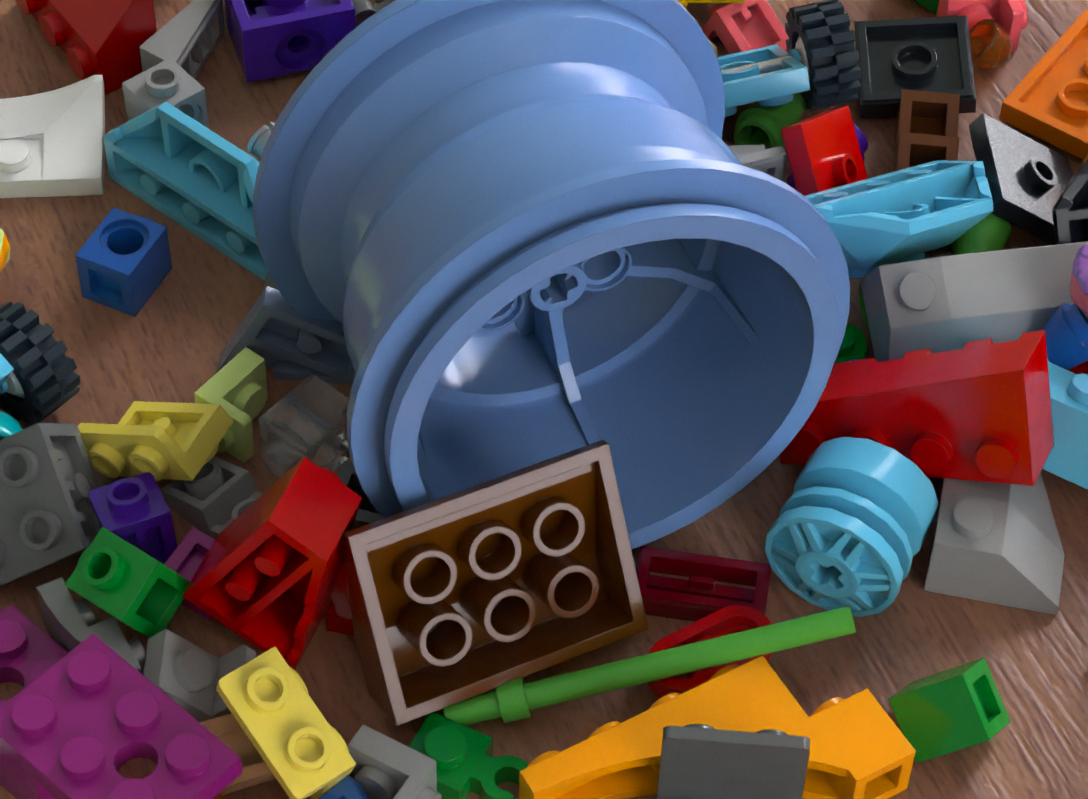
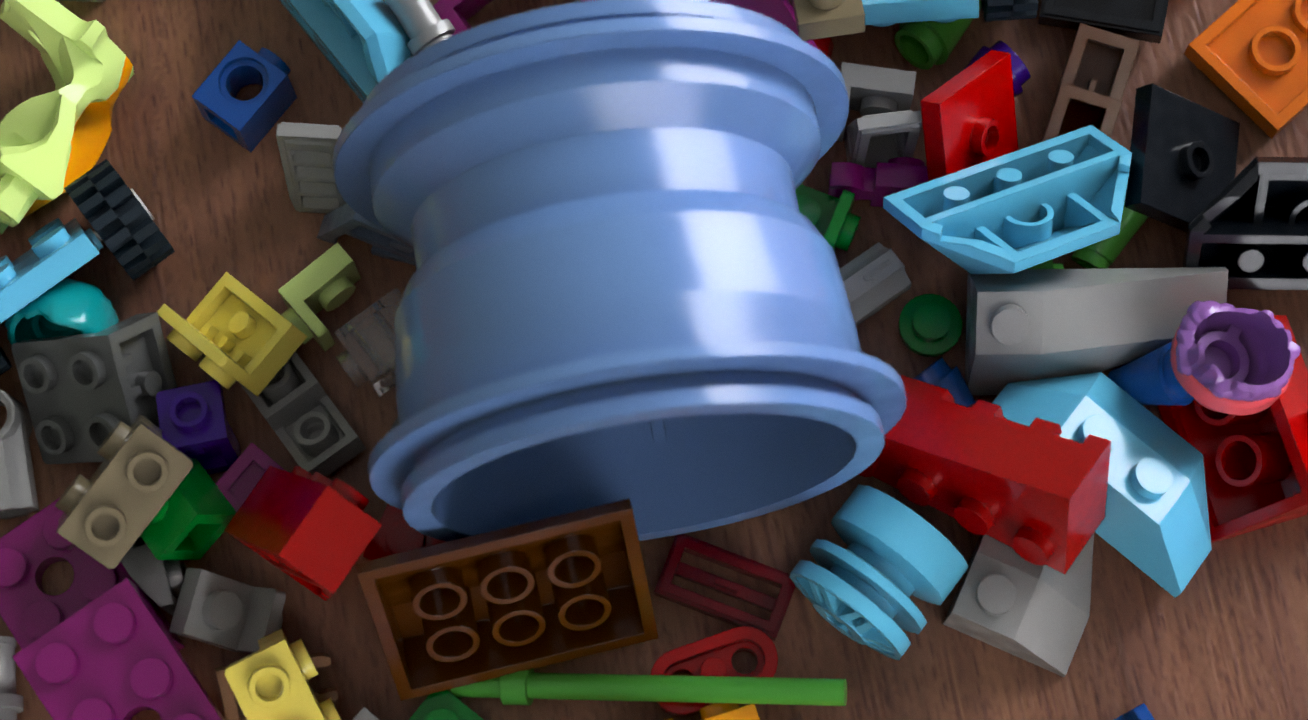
camera: 15 degrees right, 25 degrees up
(79, 555) = (124, 493): none -> dark tan bracket
(210, 294) = (308, 165): none -> light grey slope

